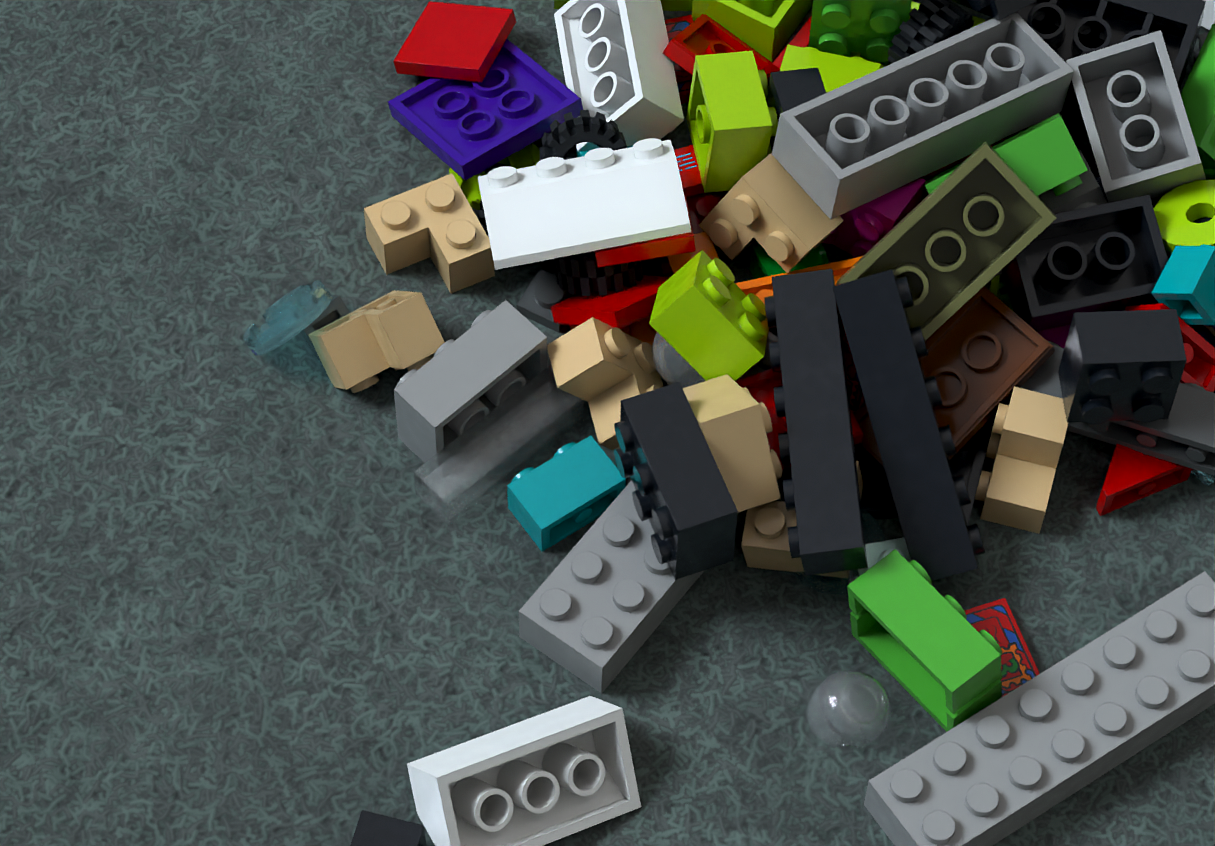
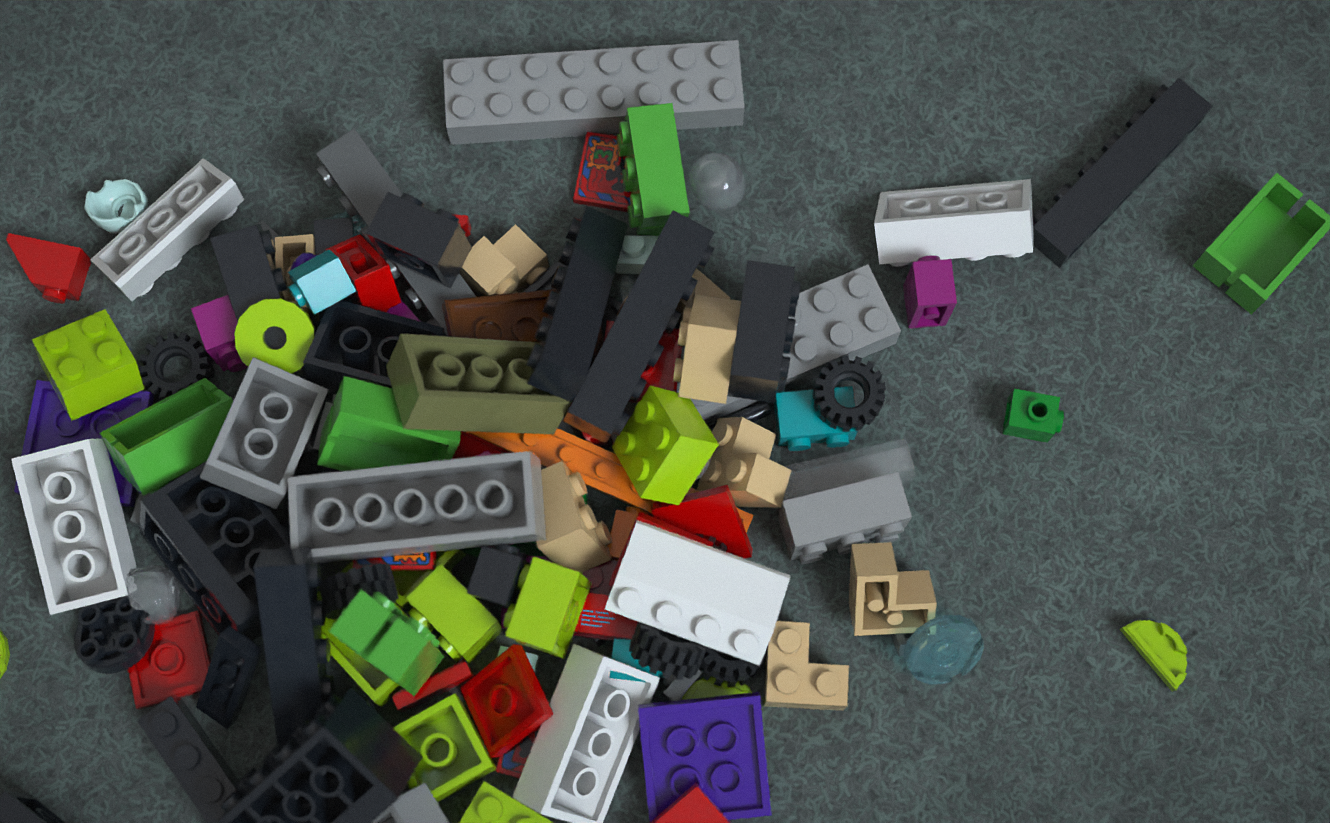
camera: 150 degrees left, 15 degrees up
(45, 450) = (1160, 648): none -> lime plate
(311, 618) = (1032, 415): none -> green brick
(508, 674) = (929, 292): none -> magenta brick
(539, 477) = (853, 371): none -> black tyre

